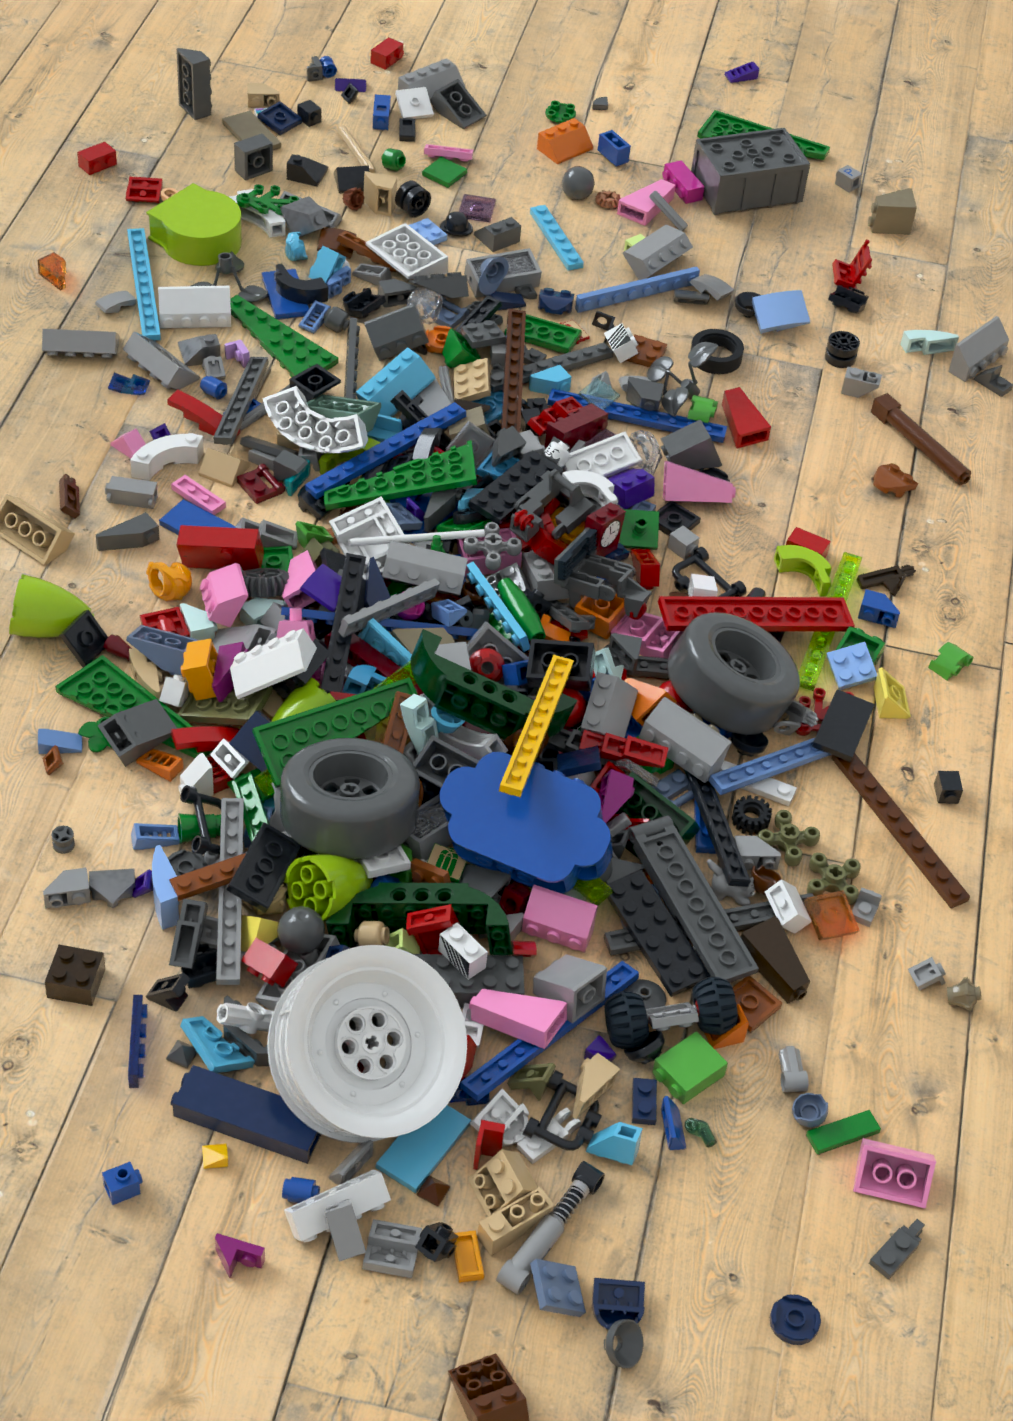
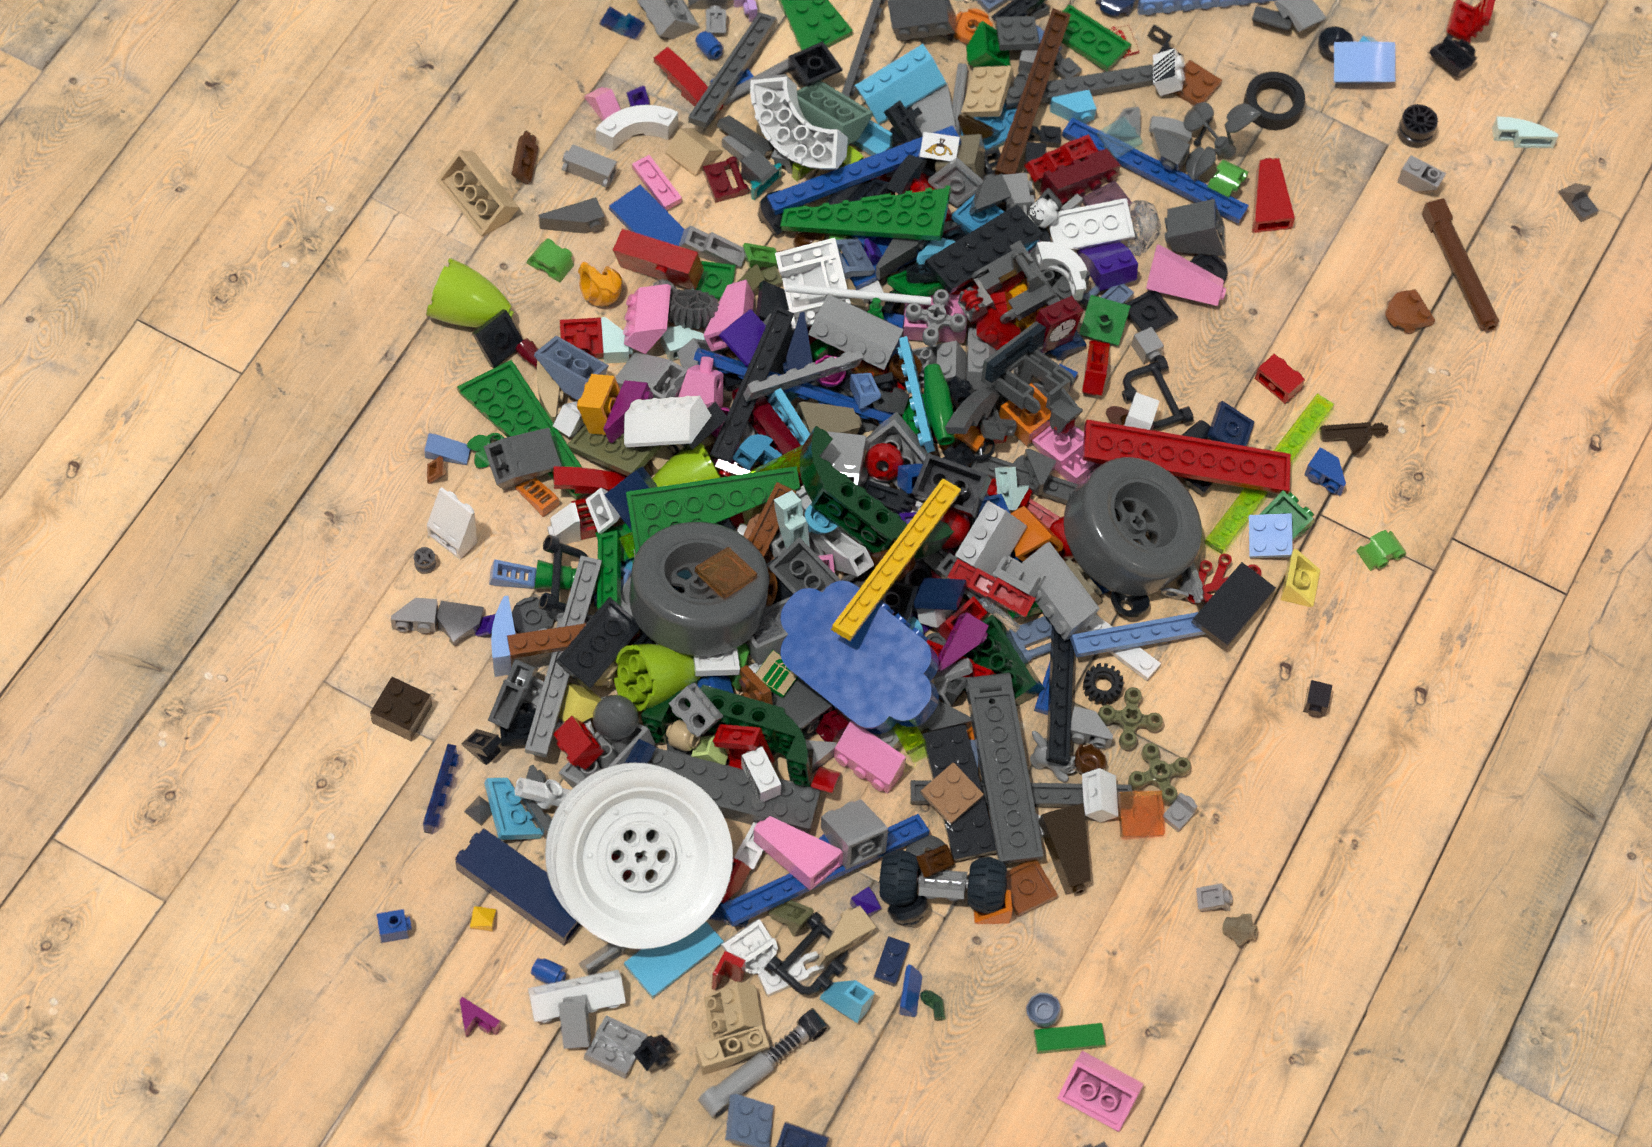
camera: 15 degrees right, 15 degrees up
(84, 797) = (452, 524): none -> white slope
(118, 569) = (552, 260): none -> bright green cylinder
(376, 770) = (725, 572): none -> clear orange tile
(383, 898) = (699, 706): none -> light grey brick
(433, 1190) = (669, 1000): reddish brown slope -> none
(449, 418) = (939, 146): none -> white sticker
(468, 1257) = (680, 1071): light orange tile -> none
(554, 609) = (971, 410): none -> dark grey slope
(647, 731) = (1019, 575): none -> light grey hinge
(651, 931) = (951, 793): none -> medium nougat plate
(656, 996) = (935, 860): none -> reddish brown plate
(689, 1067) = (944, 939): bright green brick -> none
(779, 585) = (1230, 425): none -> dark blue tile
(792, 1075) = (1041, 970): light grey piece -> none
(806, 561) = (1271, 396): lime arch -> none
(903, 831) = (1253, 736): reddish brown plate -> none
(979, 350) = (1575, 159): light grey slope -> none

